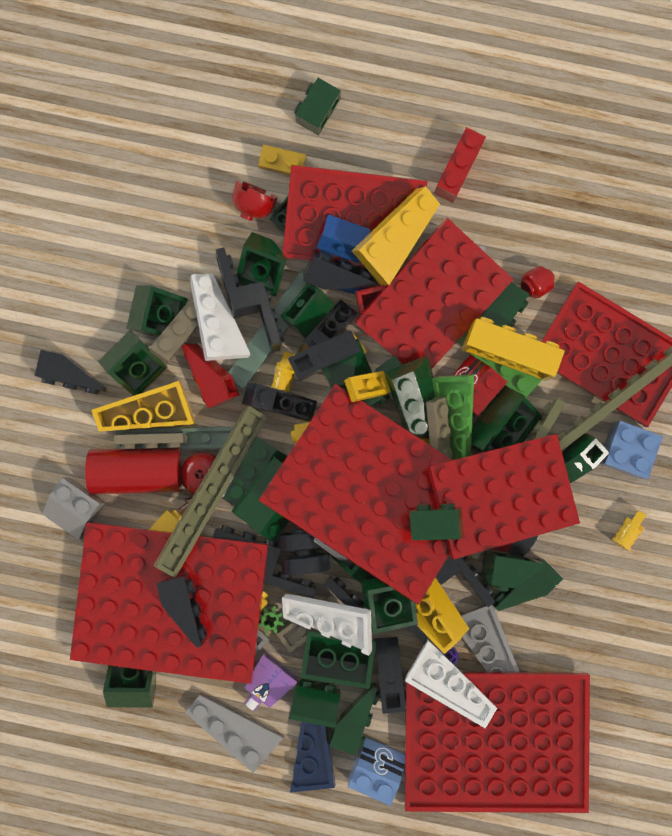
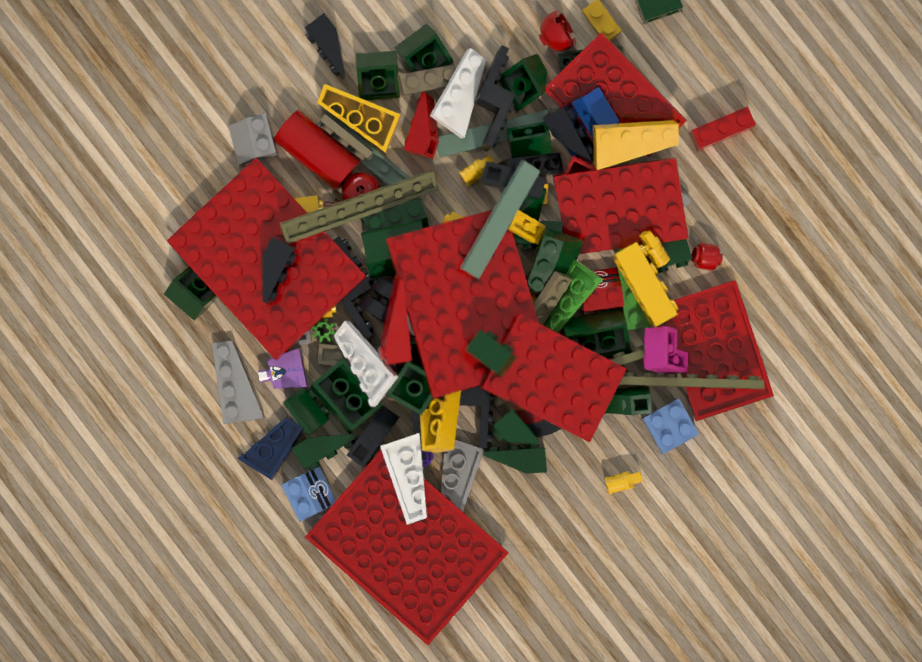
camera: 45 degrees right, 0 degrees up
(279, 402) = (456, 186): black slope -> none
(336, 575) = (395, 335): none -> red wedge
(342, 398) = (500, 219): none -> sand green tile
(498, 313) = (654, 249): none -> yellow hinge
(574, 392) = (662, 351): none -> dark pink brick

